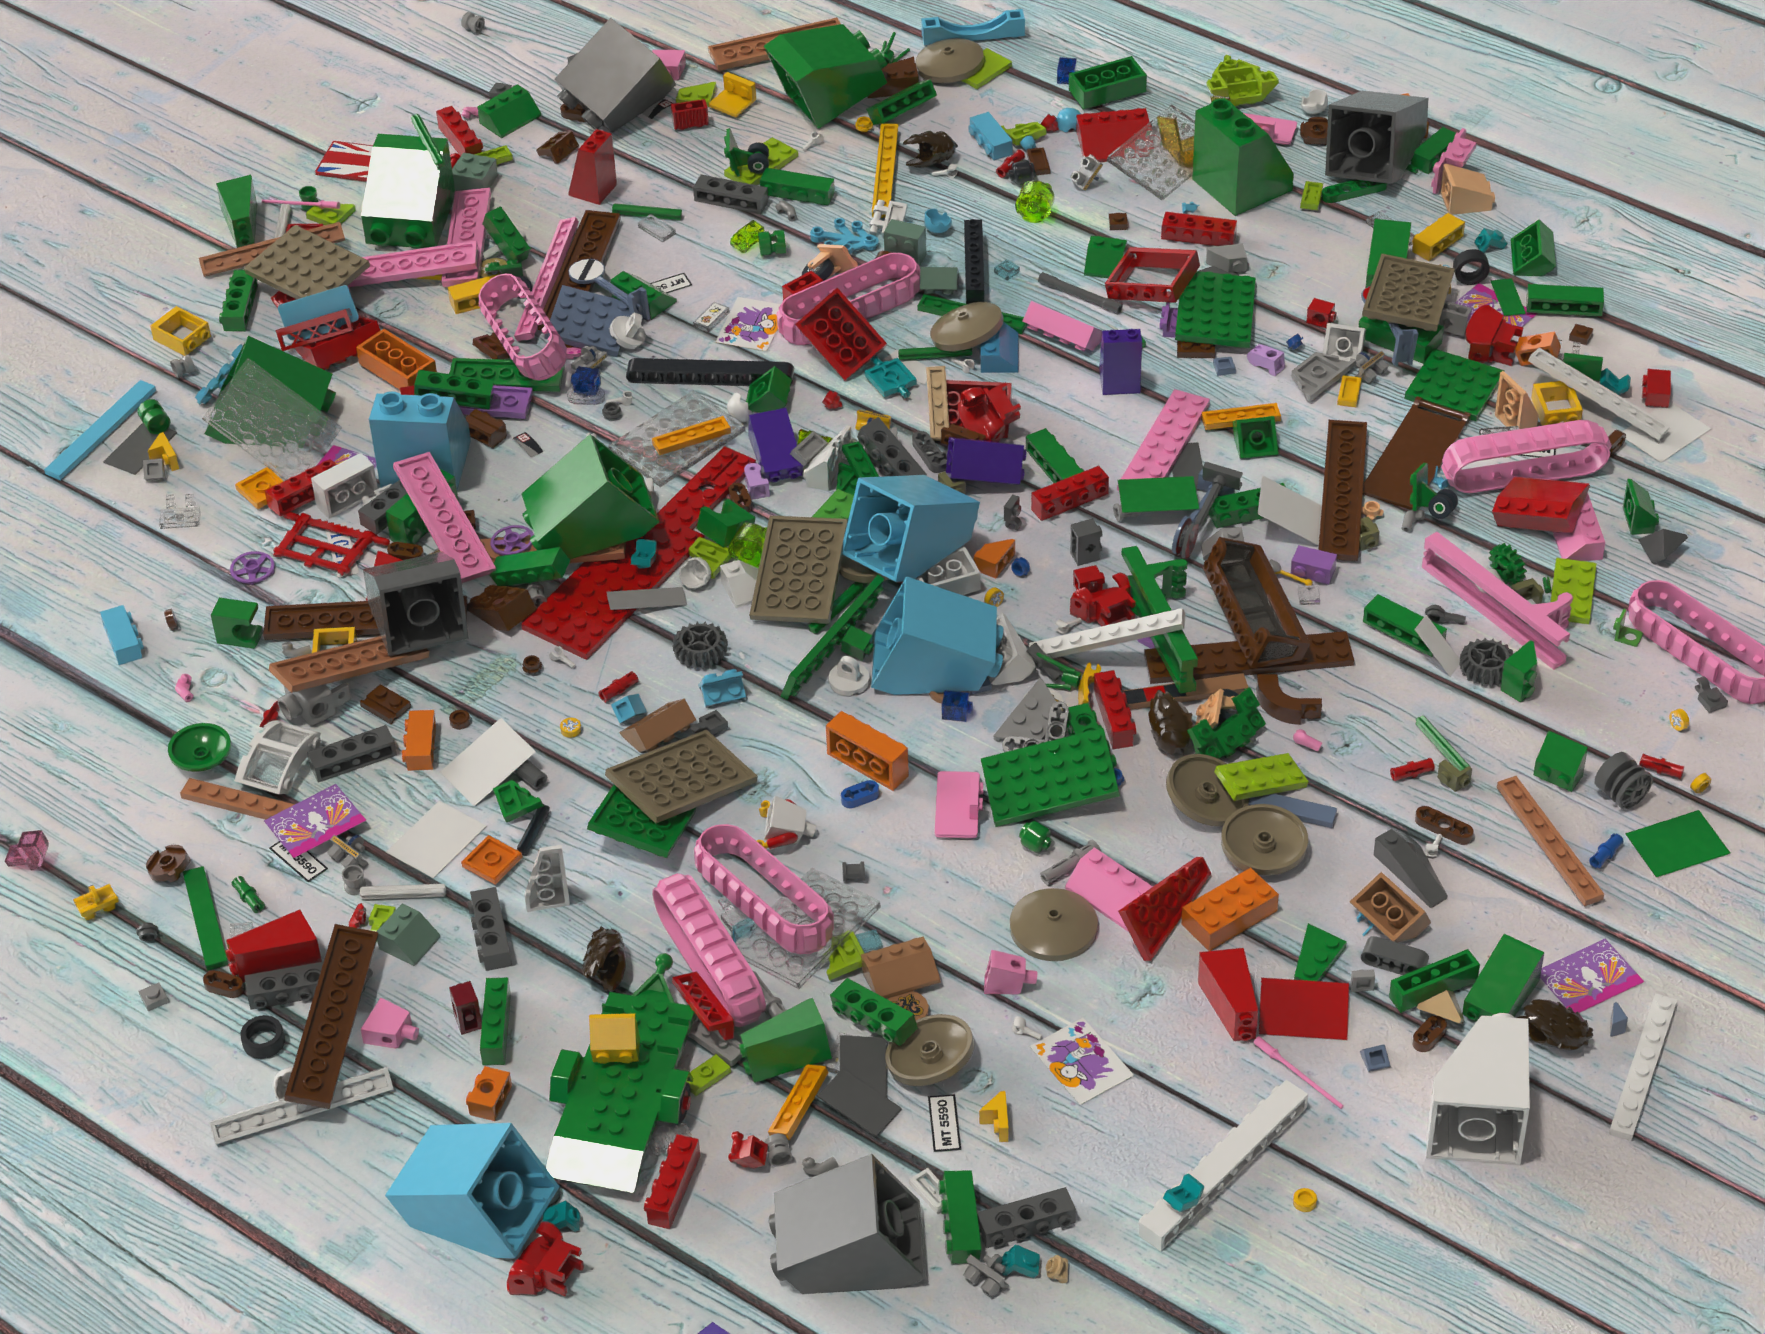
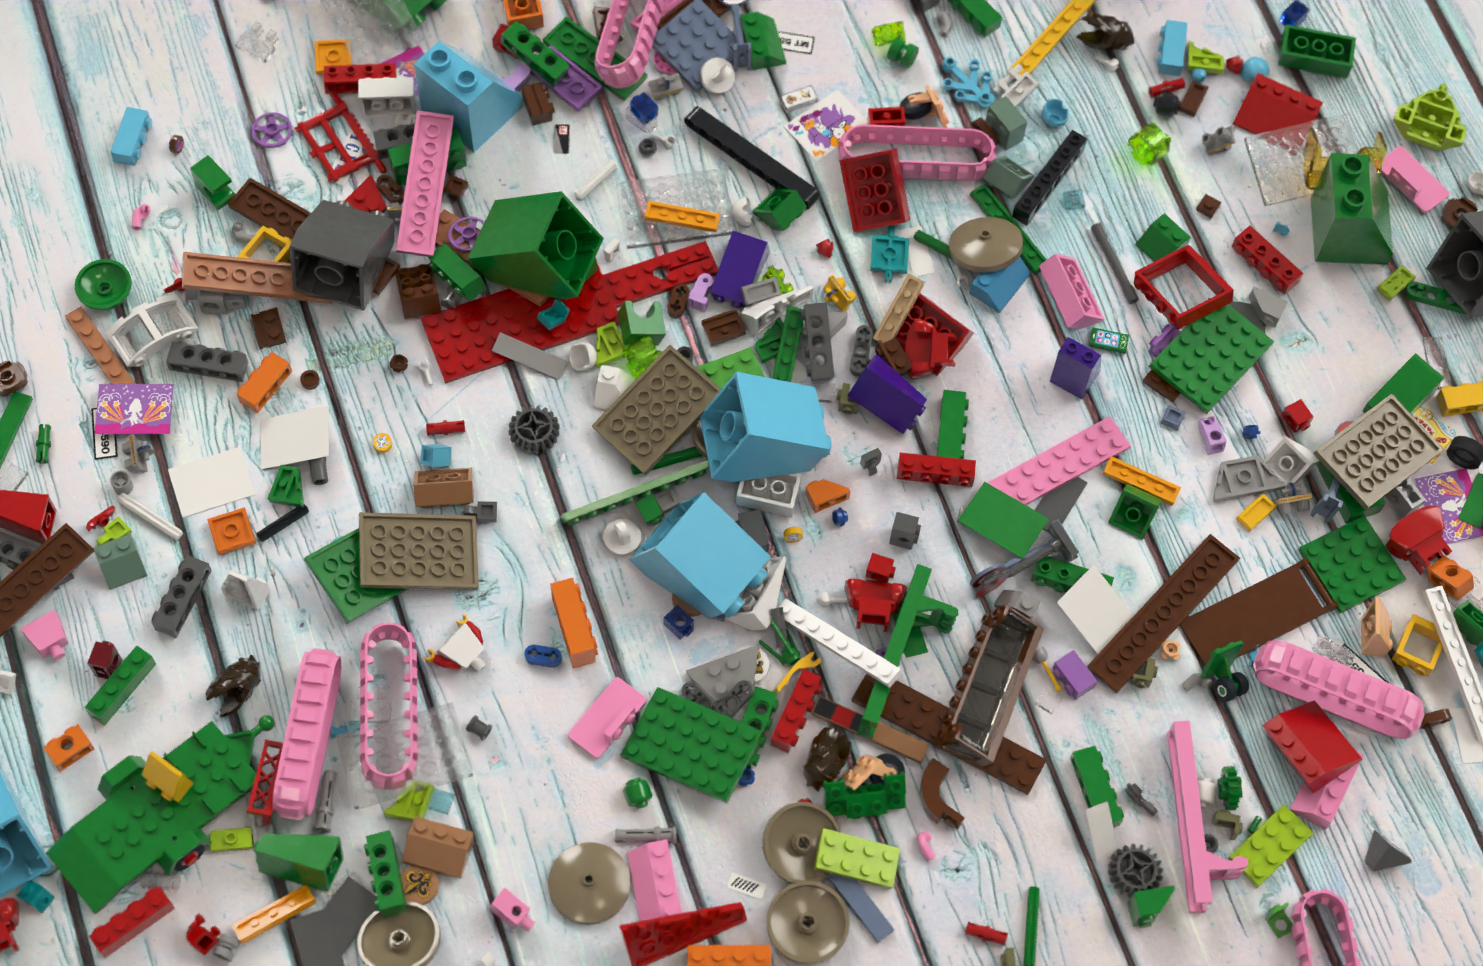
camera: 30 degrees right, 20 degrees up
(722, 688) = (518, 482): medium azure bracket -> none
(797, 494) = (723, 327): none -> reddish brown plate
(1187, 852) = (747, 885): none -> white sticker
(1639, 509) = (1395, 805): green slope -> none

